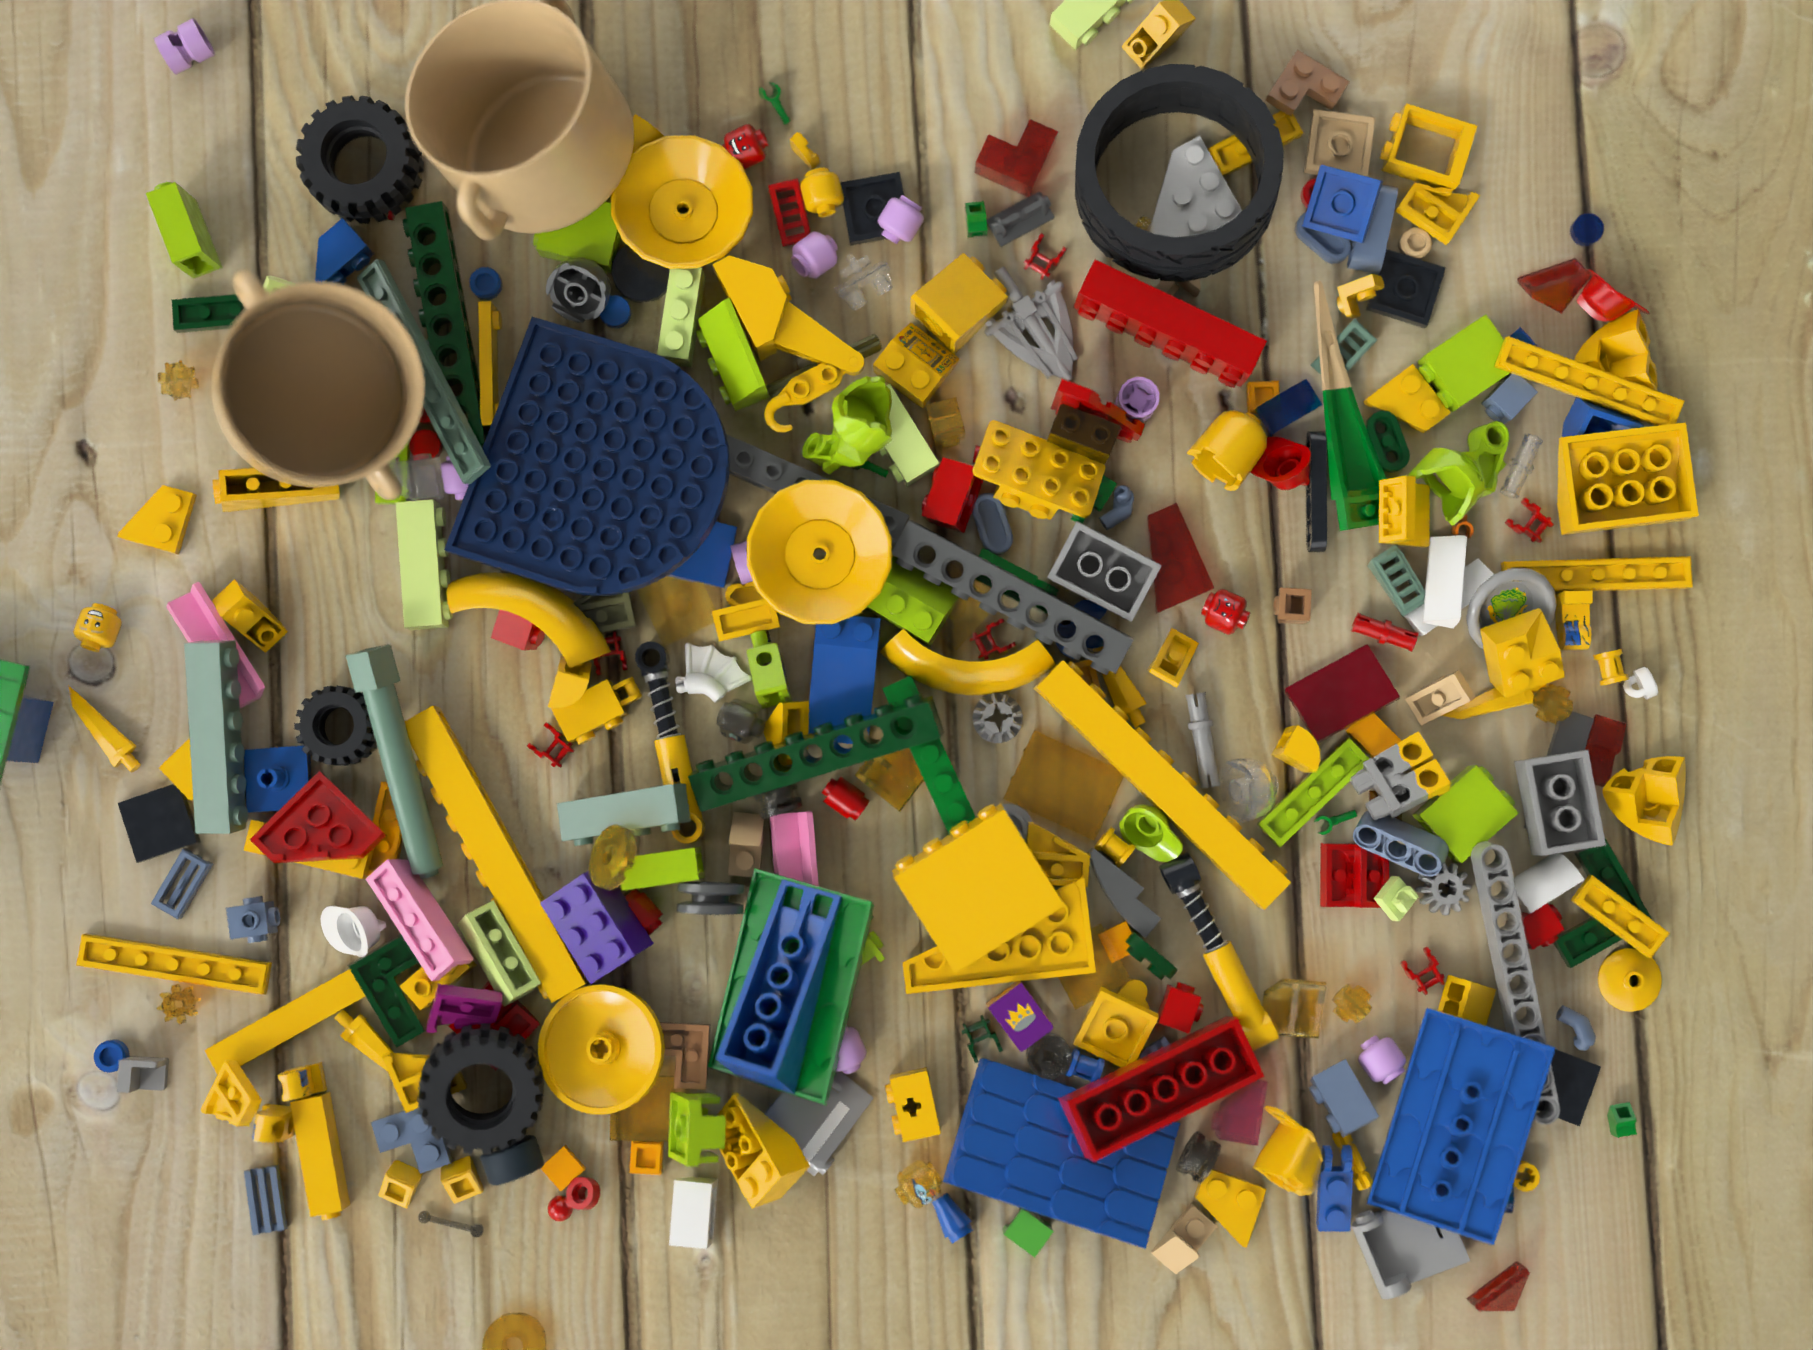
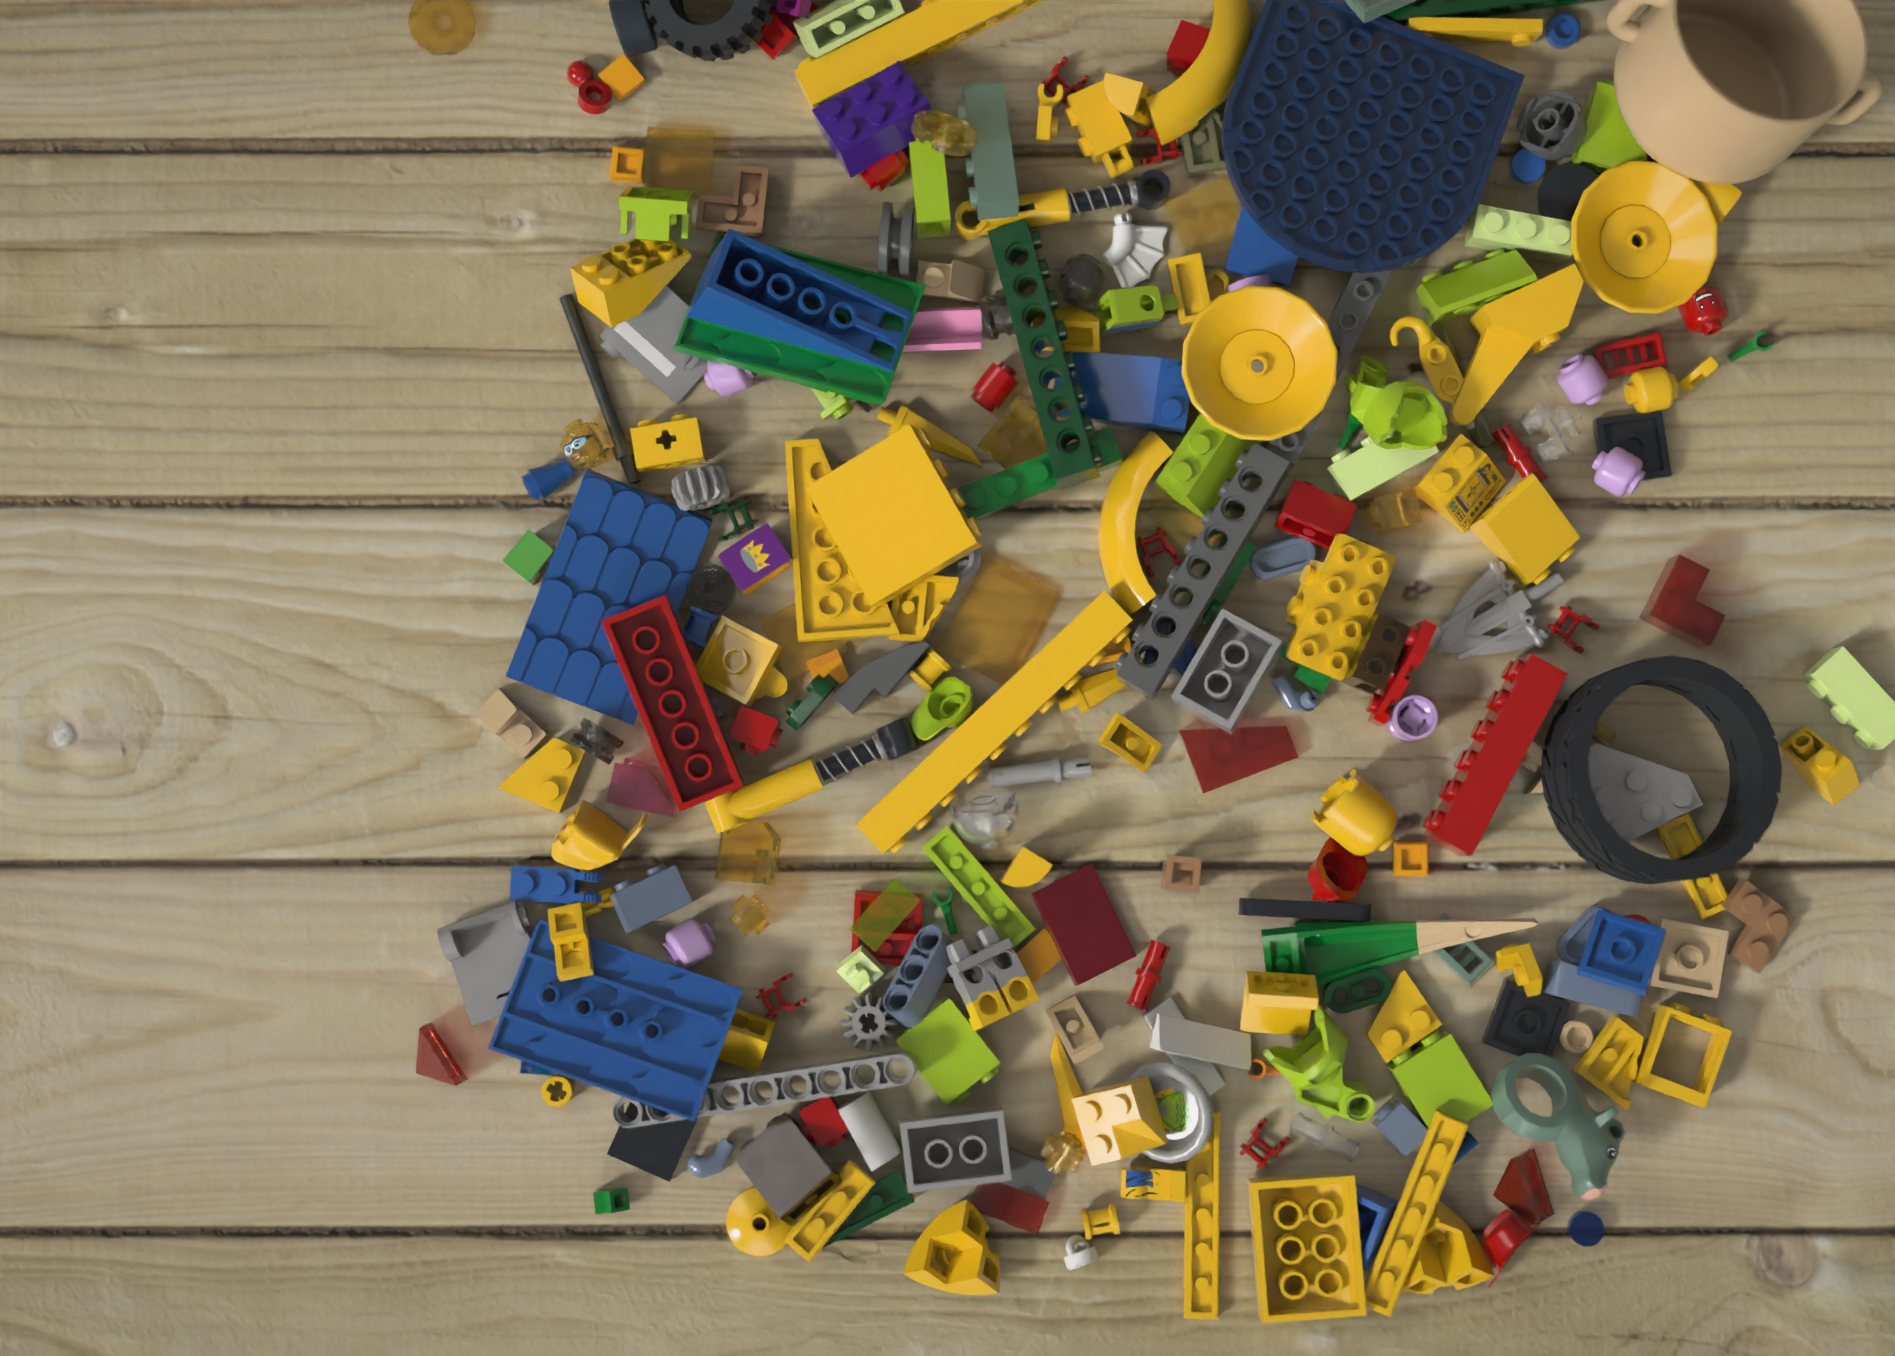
camera: 90 degrees right, 0 degrees up
(592, 759) = (1047, 123): none -> yellow plate
(601, 1049) = (743, 119): yellow dish -> none
(693, 1212) = (568, 210): white brick -> none
(882, 877) = (941, 440): none -> yellow bar
(886, 311) = (1518, 454): none -> red pin
(919, 1148) = (622, 448): none -> pearl dark grey bar
(955, 1071) = (700, 488): none -> light grey gear
(976, 219) = (1616, 556): green piece -> none
(989, 730) = (1085, 563): light grey gear -> none
(1020, 218) = (1616, 605): dark grey hinge -> none
(1225, 611) = (1177, 803): red head -> none
(1288, 406) = (1399, 885): clear blue slope -> none
(1346, 878) = (885, 914): none -> clear neon green tile
(1389, 1171) = (570, 942): none -> yellow slope
(1401, 564) = (1227, 976): sand green slope -> none
(1511, 233) = (1583, 1137): none -> sand green animal
(1586, 958) = (787, 1169): none -> panel

